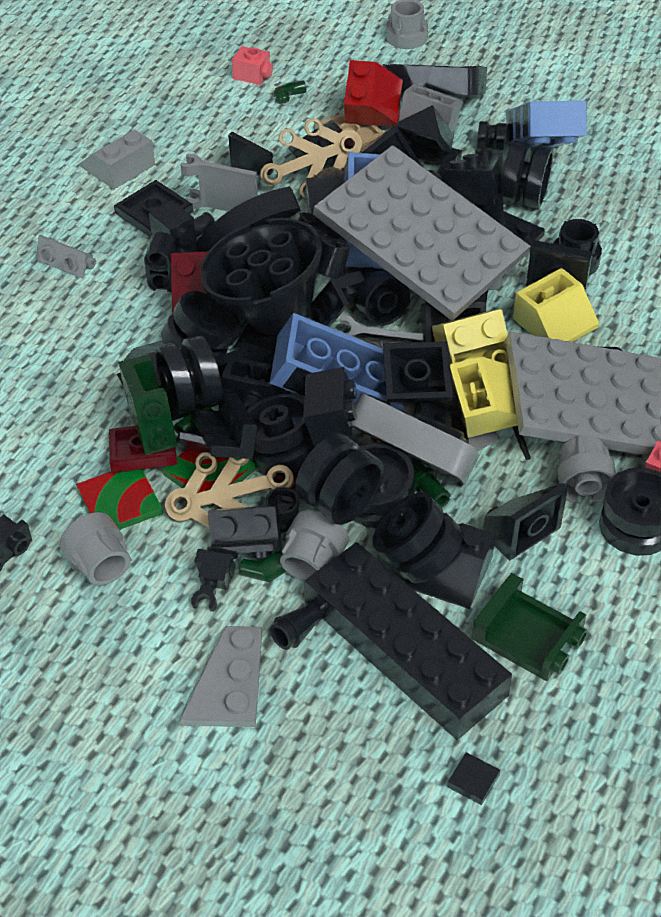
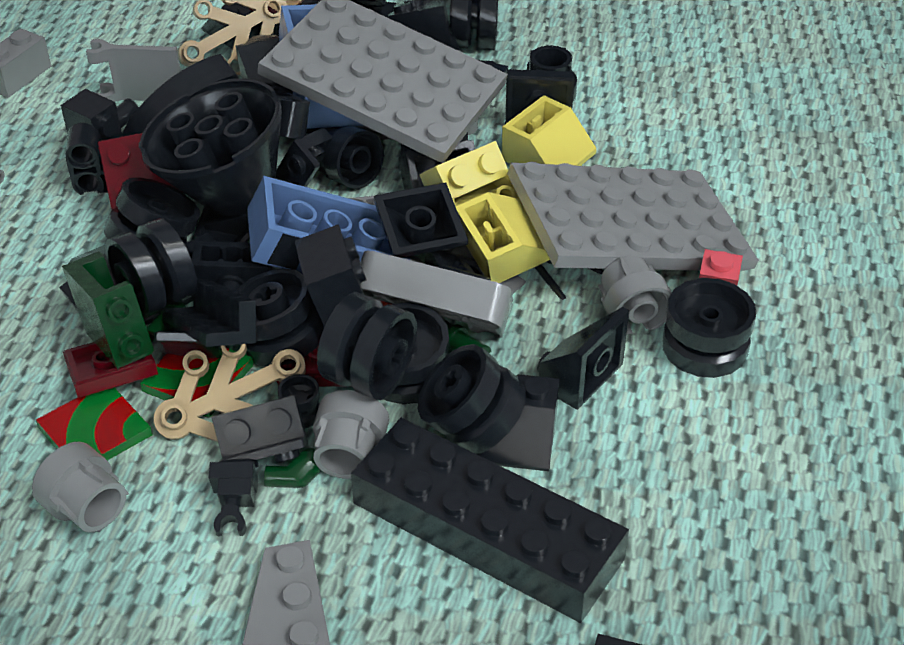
camera: 15 degrees left, 5 degrees down
(138, 205) = (44, 108): black plate -> none
(247, 154) = (155, 34): black slope -> none
(294, 626) = (348, 532): black cone -> none
(358, 330) = (356, 190): light grey flag -> none
(528, 630) = (626, 481): dark green panel -> none

